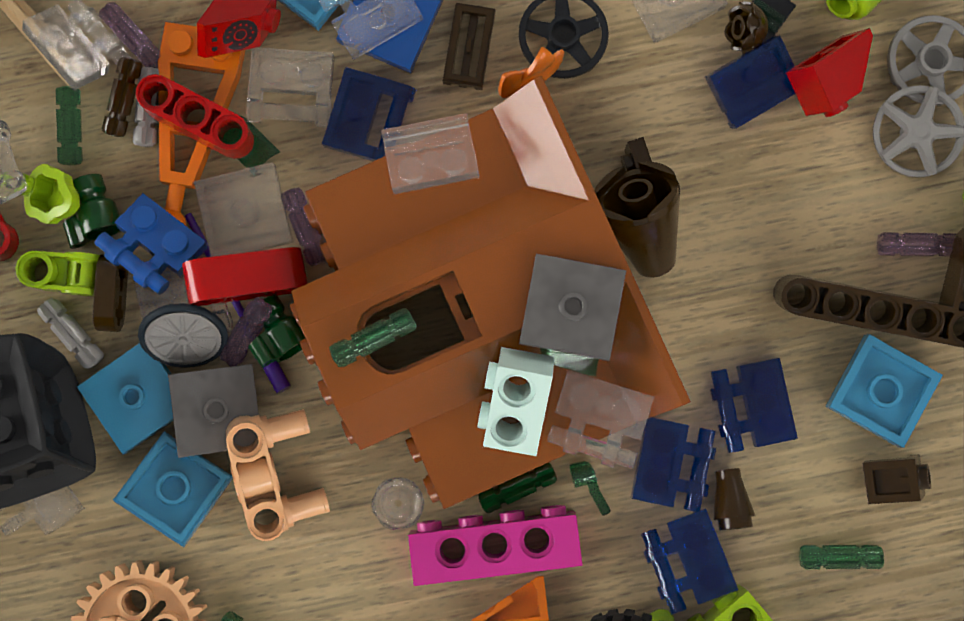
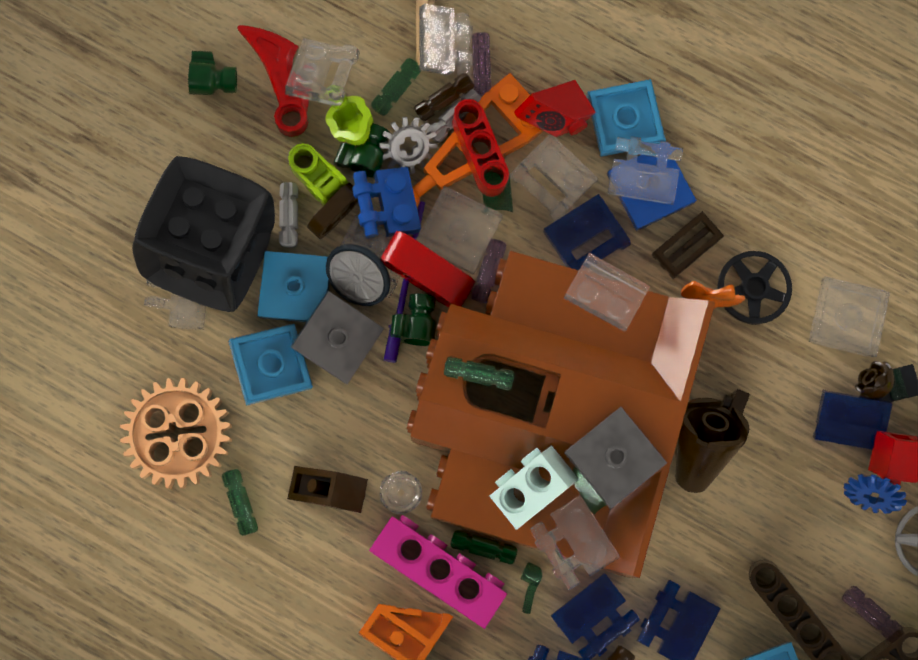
camera: 30 degrees right, 5 degrees down
(125, 154) = (419, 151): none -> light grey gear
(245, 331) = (398, 305): axle -> none
(257, 477) = (329, 401): light nougat piece -> none
(328, 559) = (327, 489): none -> dark brown slope
(818, 140) = (860, 493): none -> blue gear

